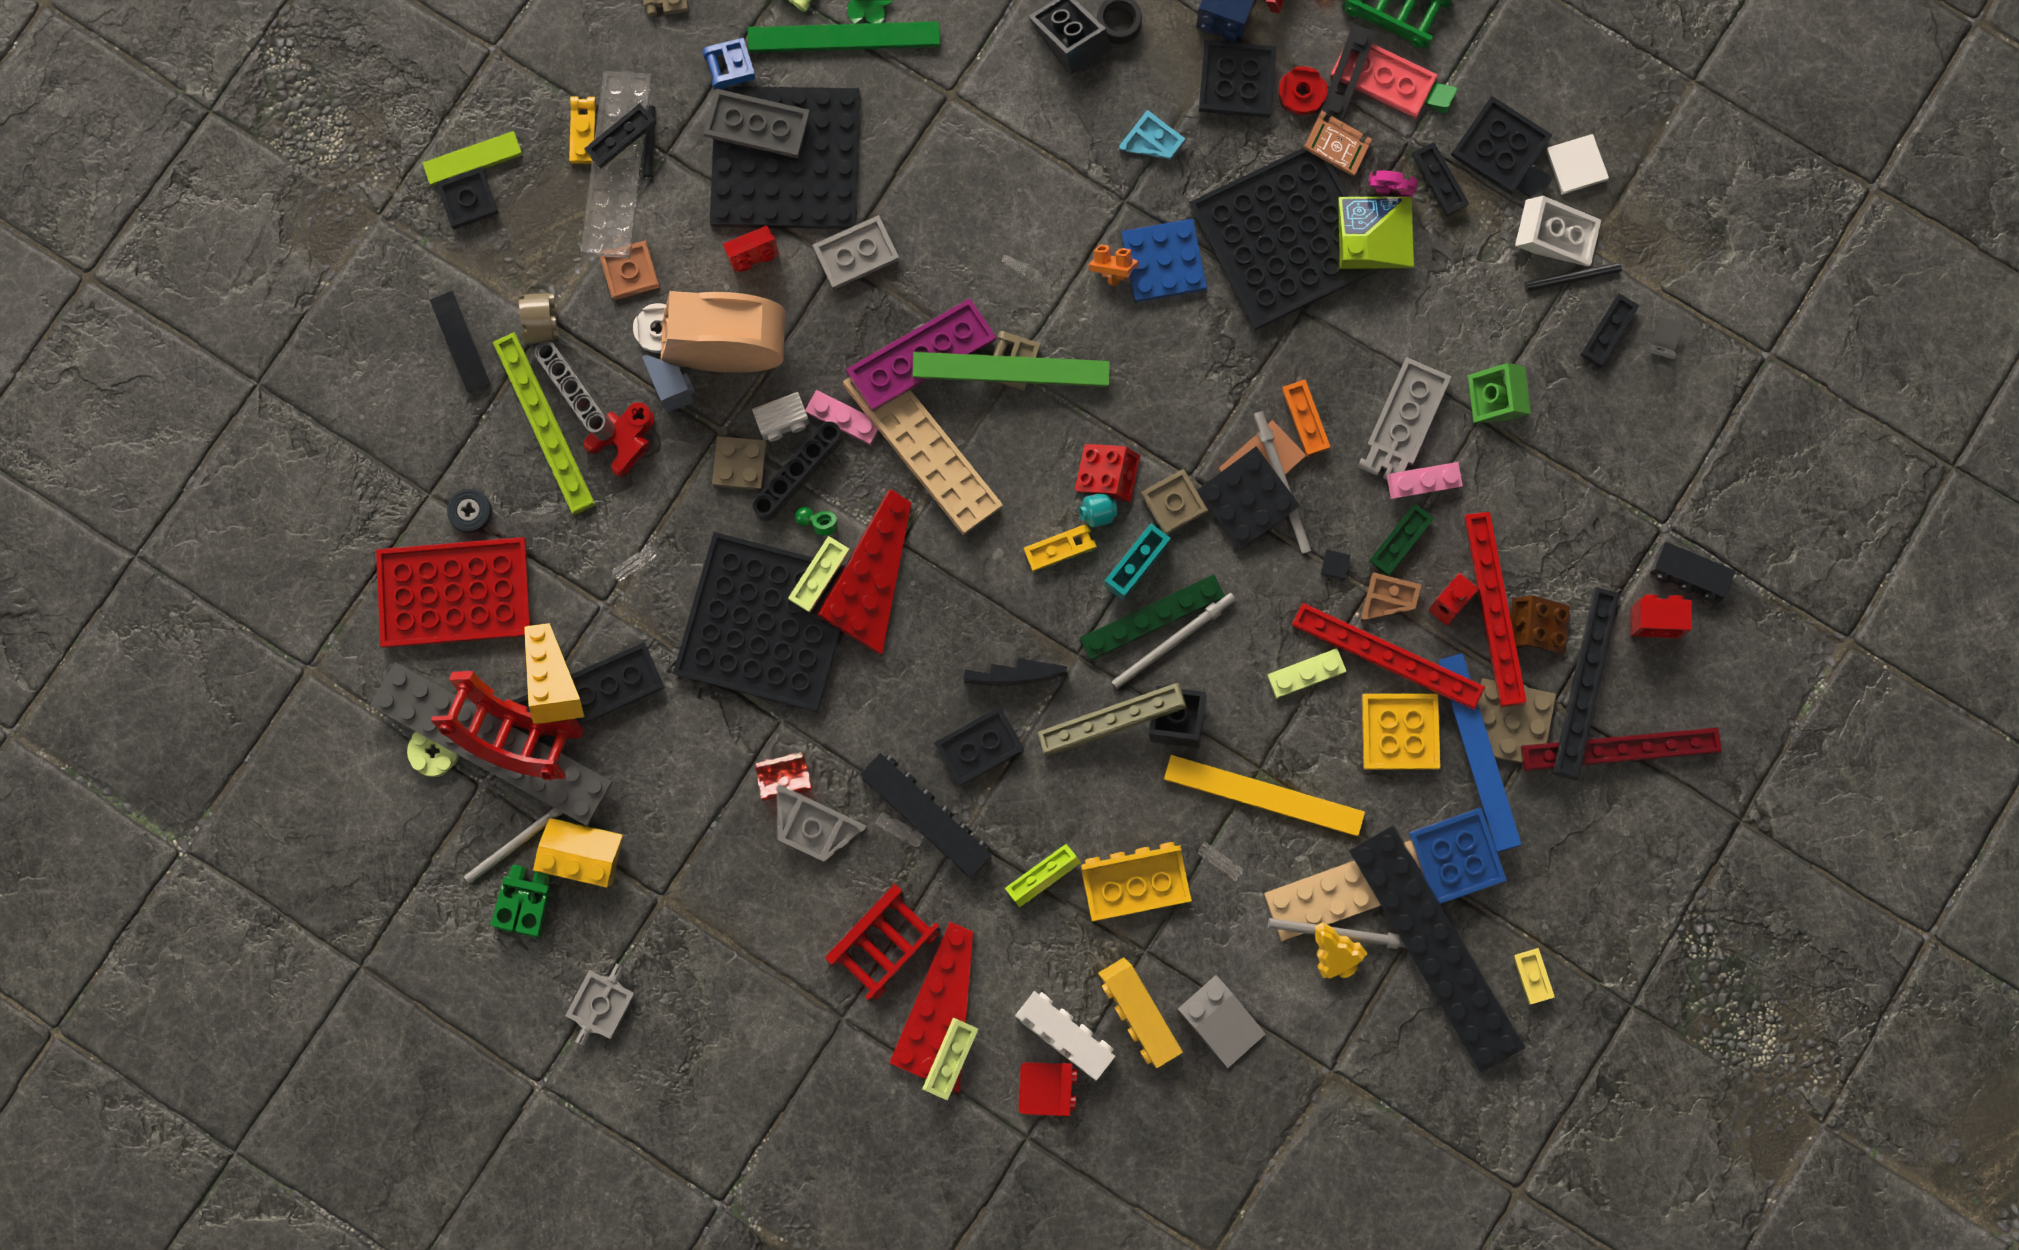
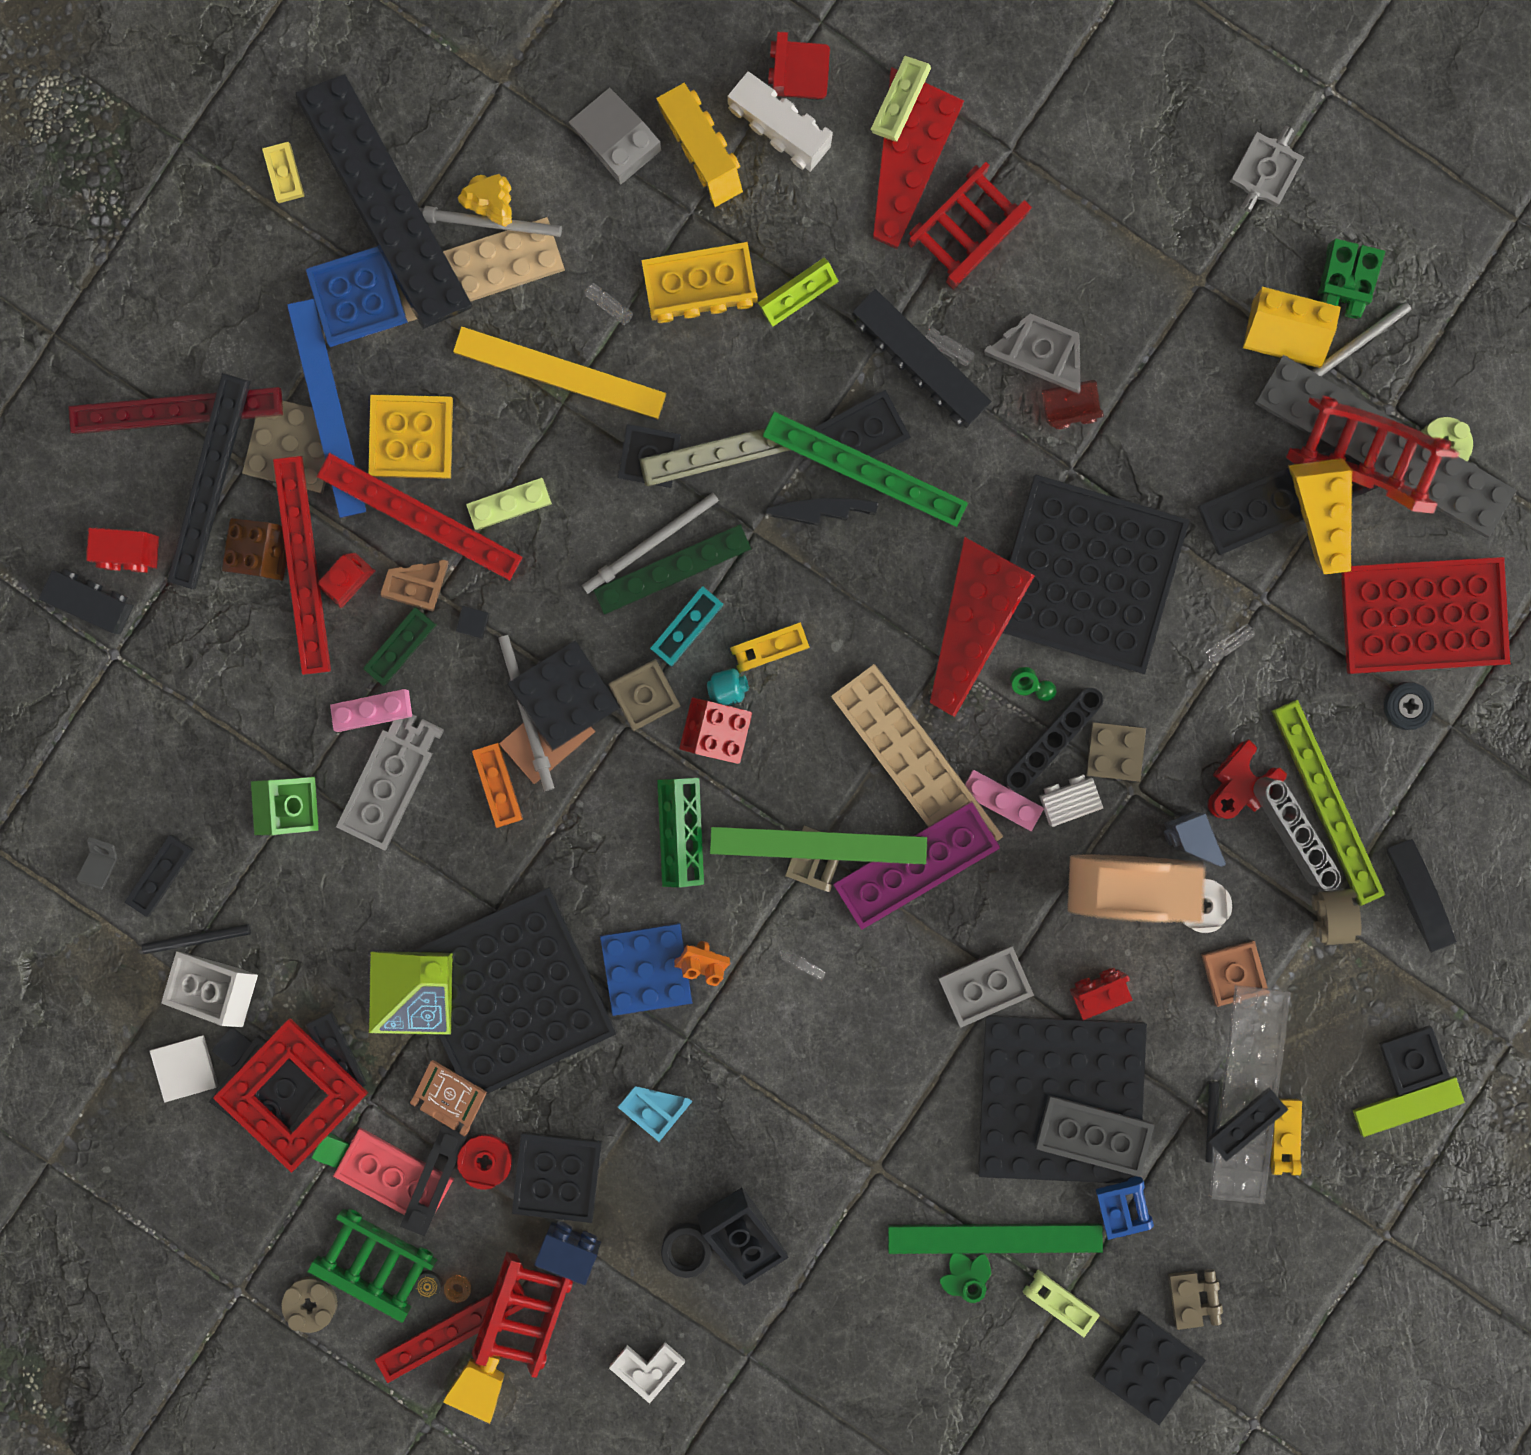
camera: 175 degrees left, 10 degrees up
(819, 574) = (1032, 621): yellowish green plate -> none
(976, 709) = (864, 469): none -> green plate
(1141, 379) = (675, 832): none -> green fence
(1393, 182) = (398, 1049): dark pink plate -> none
(1478, 96) = (294, 1044): none -> red plate

